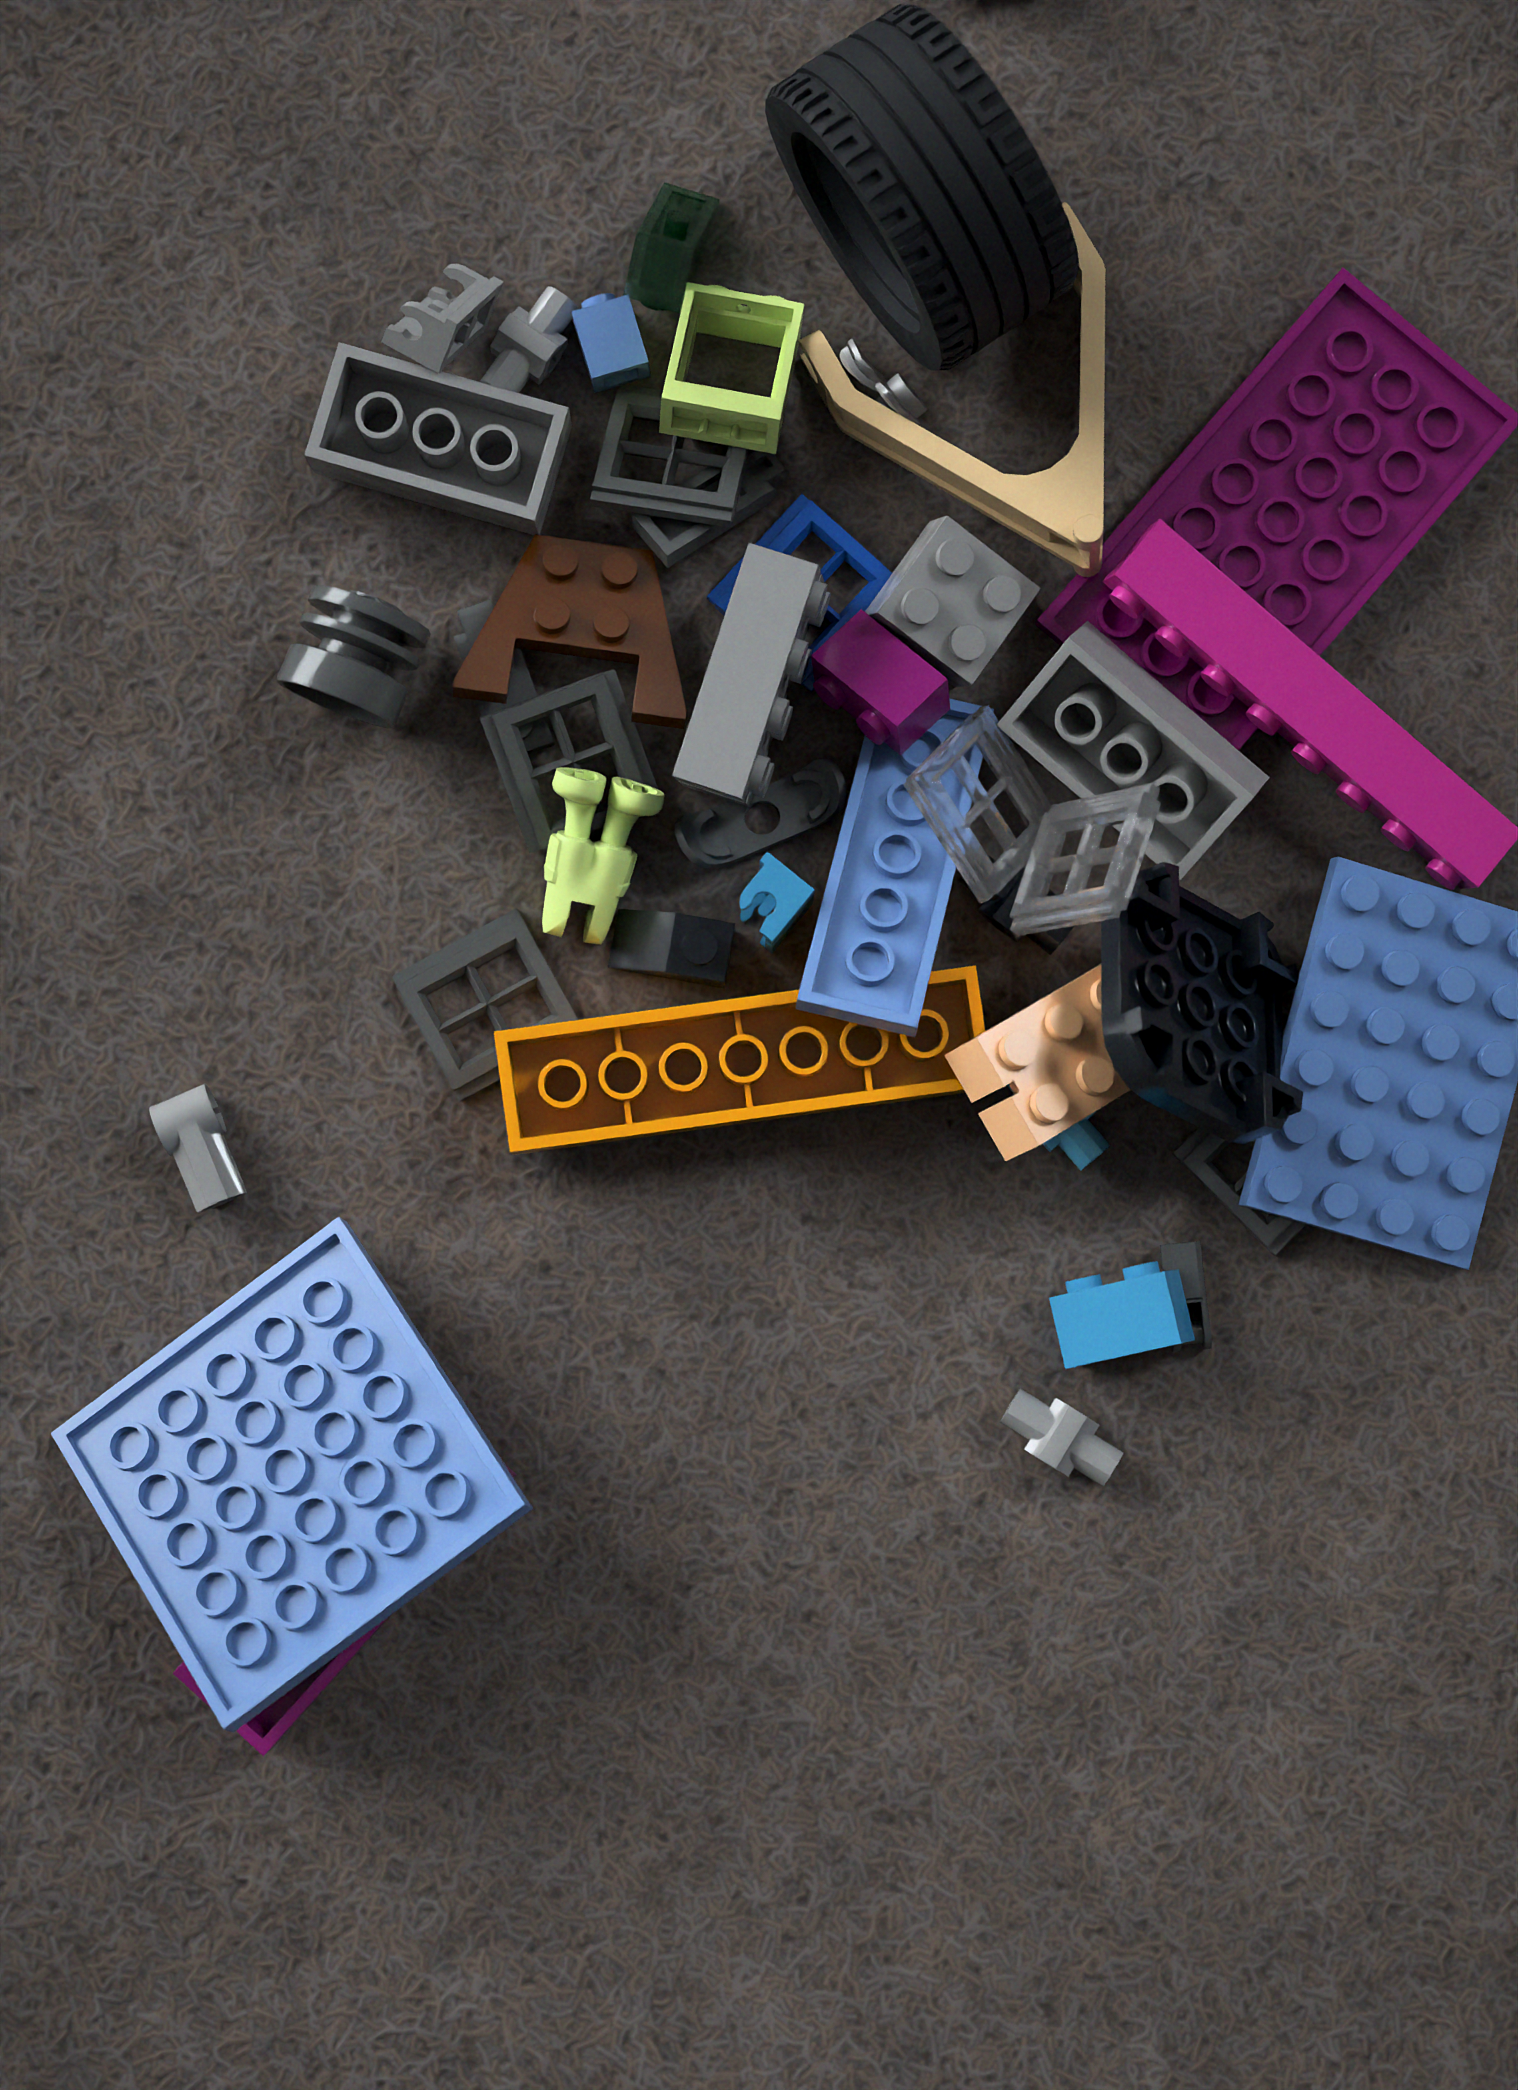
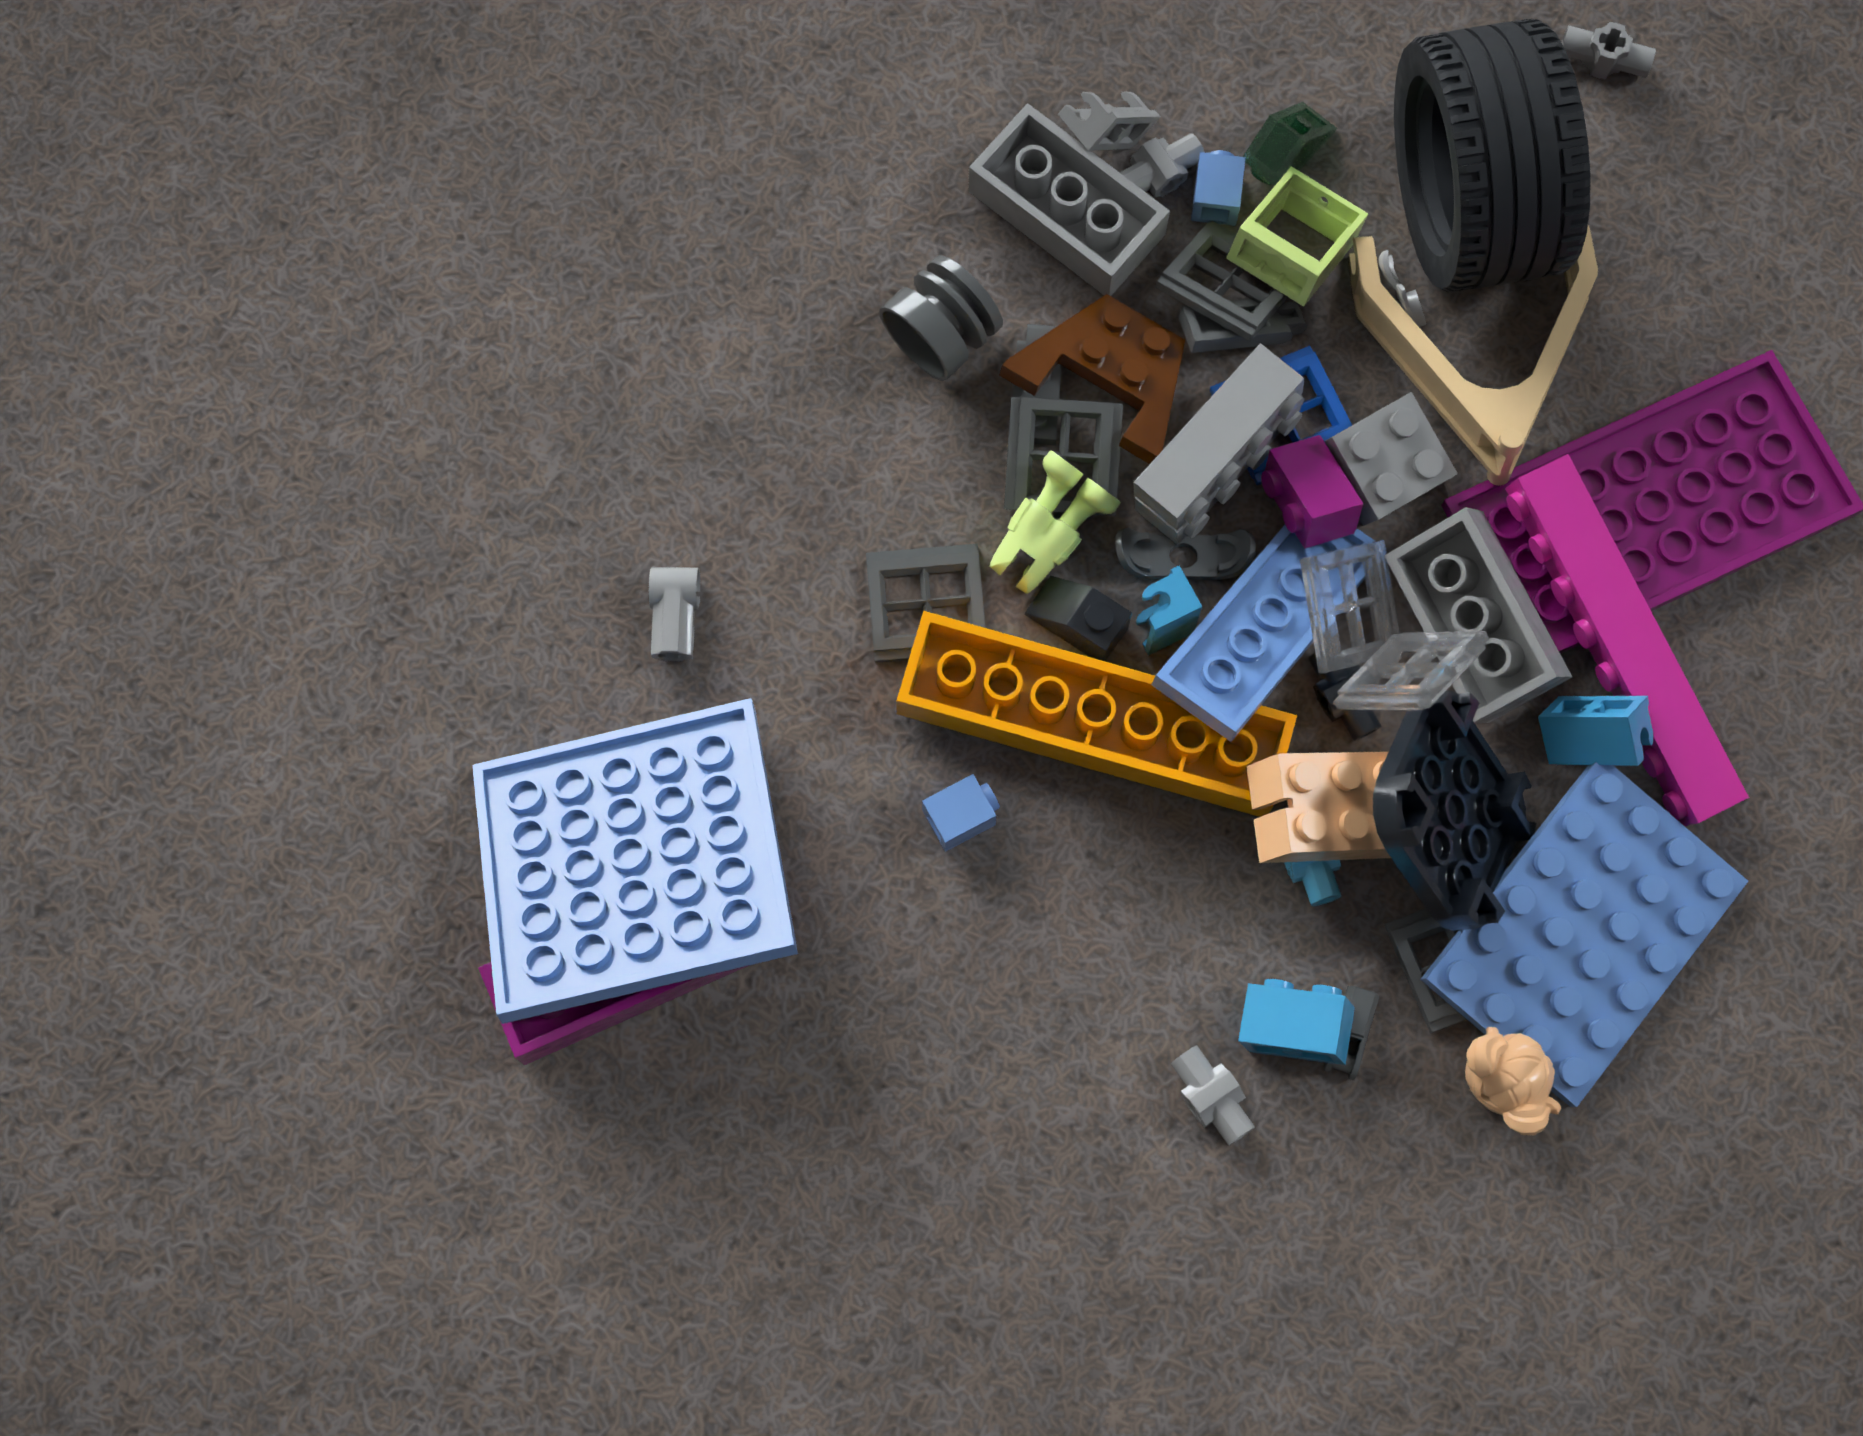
camera: 25 degrees right, 10 degrees down
(639, 1238) = (961, 811): none -> medium blue brick
(1321, 828) = (1596, 730): none -> dark azure hinge
(1387, 1275) = (1512, 1079): none -> light nougat hair

